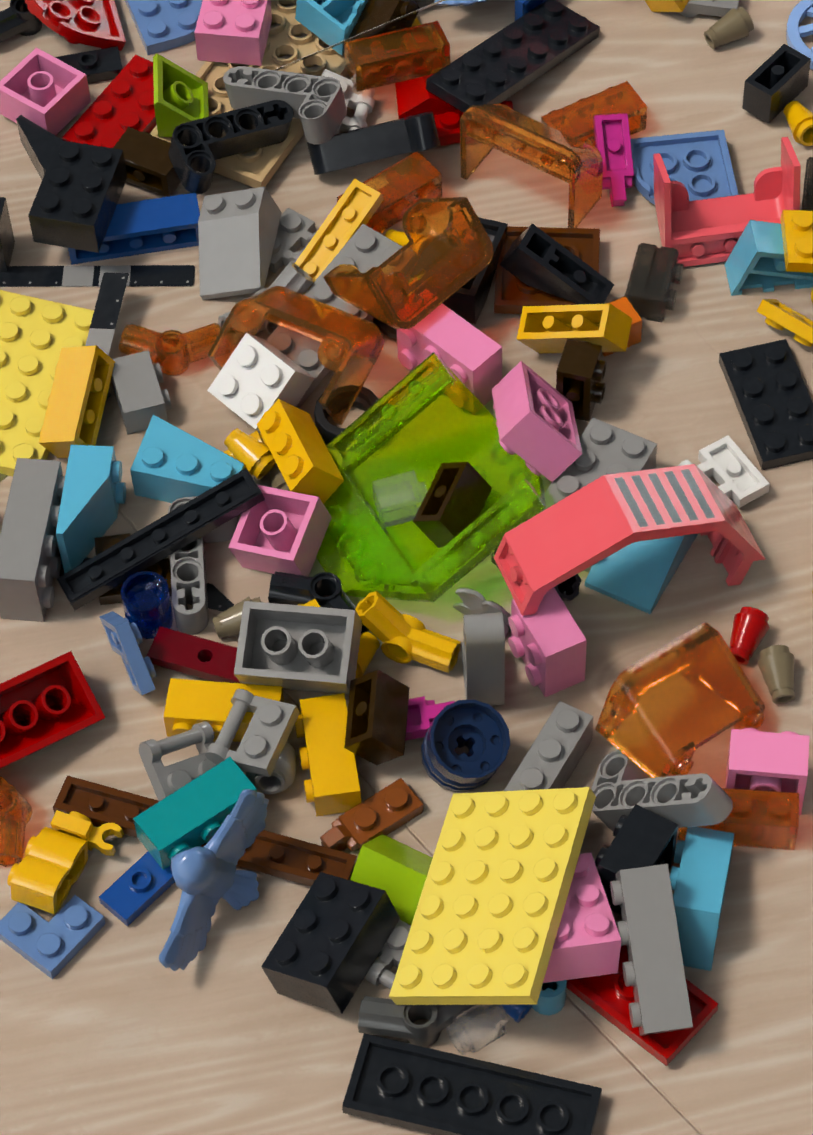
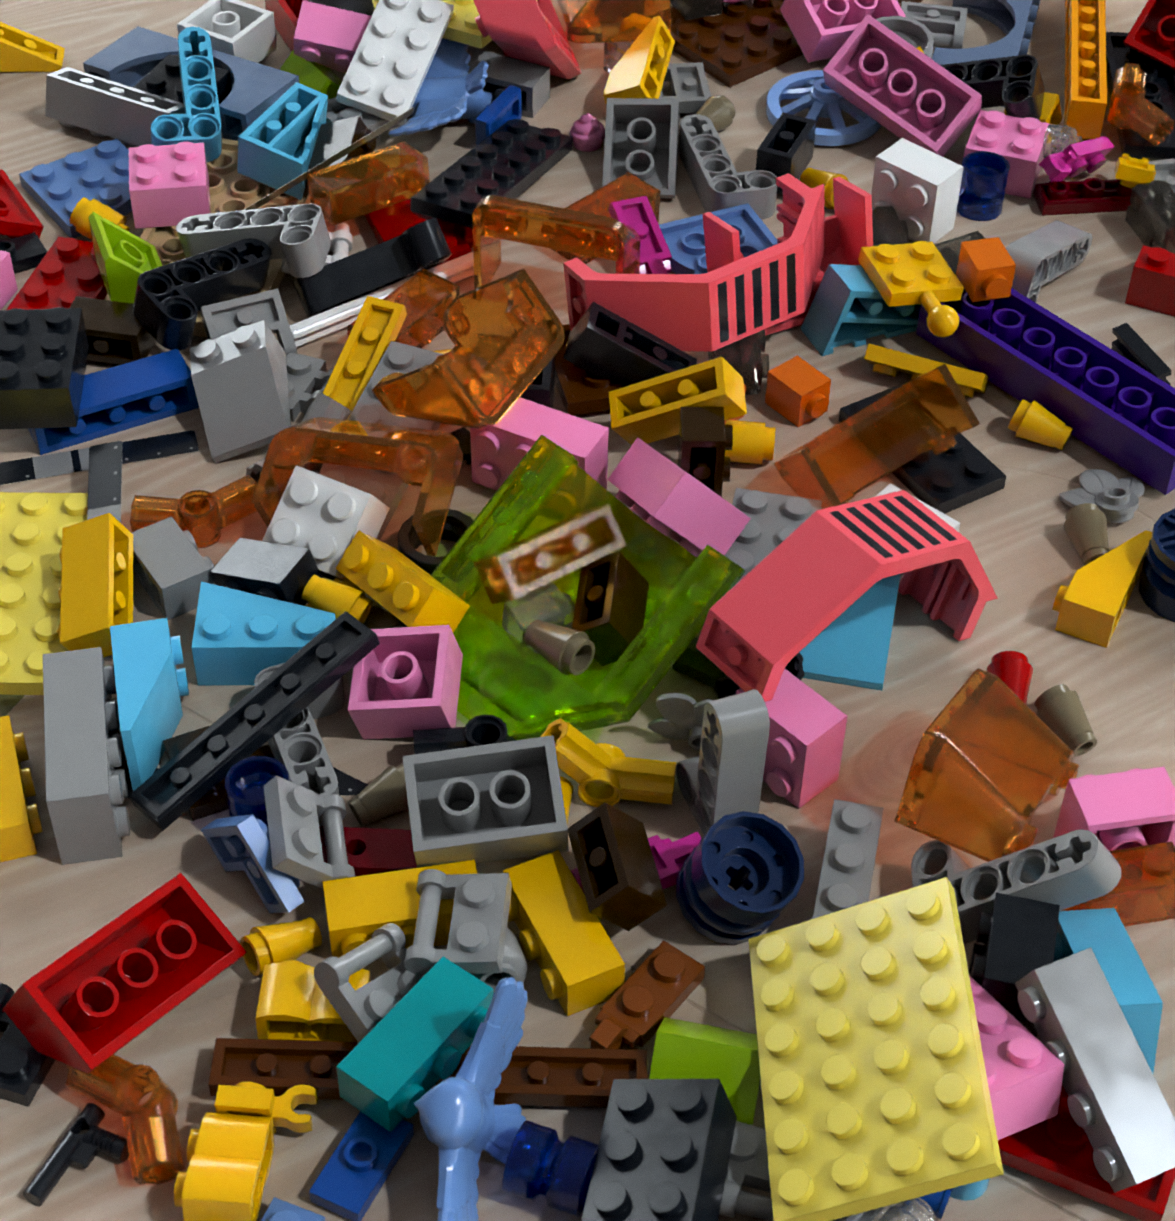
camera: 20 degrees left, 10 degrees down
(123, 767) = (295, 1006): none -> yellow brick
(129, 716) = (279, 943): none -> yellow cone
(160, 635) = (295, 832): none -> light grey plate
(171, 46) = (83, 210): none -> yellow brick
(205, 415) = (266, 569): none -> brick
(257, 919) = (549, 1168): none -> clear blue wheel
(260, 171) = (234, 313): none -> light grey plate
(341, 179) = (346, 313): none -> white axle
(402, 531) = (562, 647): none -> dark tan cone
(416, 451) = (550, 554): none -> clear orange brick
(615, 24) = (587, 133): none -> bright pink plate
(628, 371) = (751, 442): none -> yellow brick
(654, 51) = (642, 141): none -> light grey slope
(659, 240) = (725, 303): none -> coral panel
(689, 330) = (797, 391): none -> orange brick
(708, 108) = (714, 174): none -> light grey beam
(719, 399) = (879, 439): none -> clear orange windscreen

